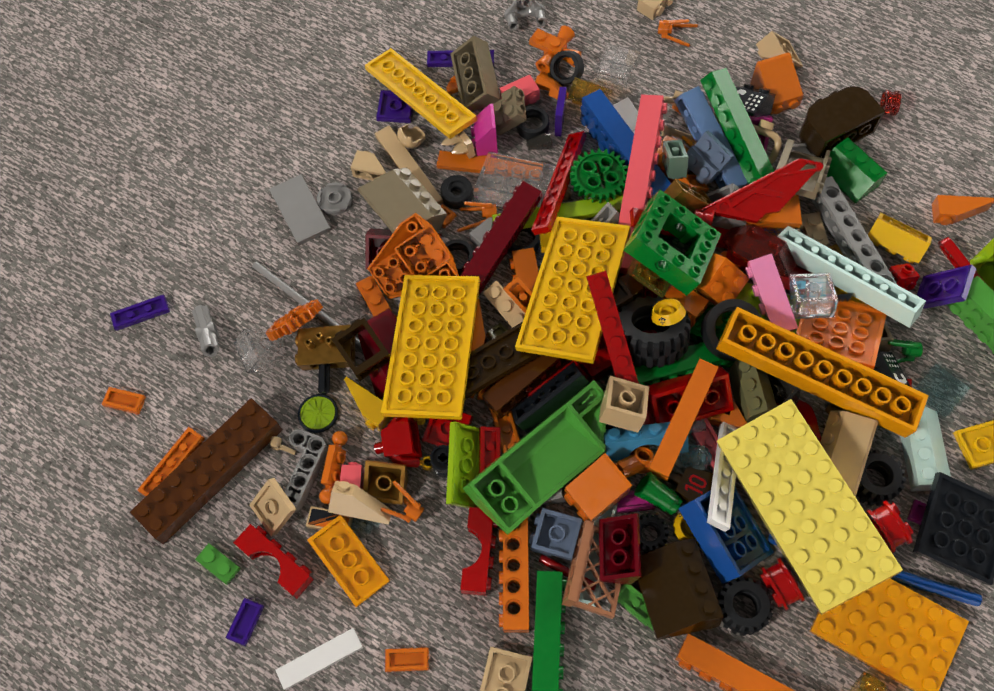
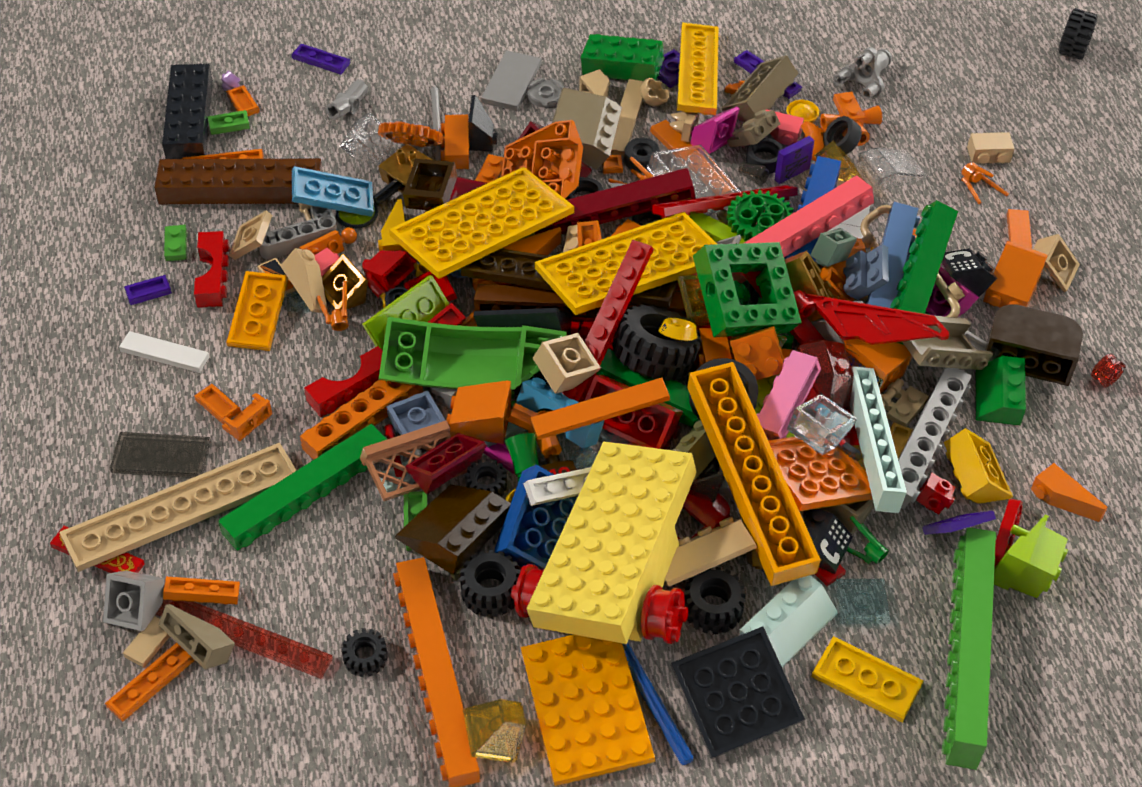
camera: 40 degrees right, 15 degrees down
(94, 393) = (229, 81): none -> lavender plate
(95, 449) = (187, 111): none -> black brick
(136, 428) = (228, 122): none -> bright green plate
(292, 417) = (332, 191): none -> dark azure tile
(316, 287) = (455, 140): none -> orange brick
(330, 268) = (480, 128): none -> black slope
(360, 127) = (623, 57): none -> green brick
(442, 649) = (249, 418): none -> orange hinge
(517, 68) = (803, 109): none -> yellow hat
(736, 49) = (1019, 227): none -> orange tile

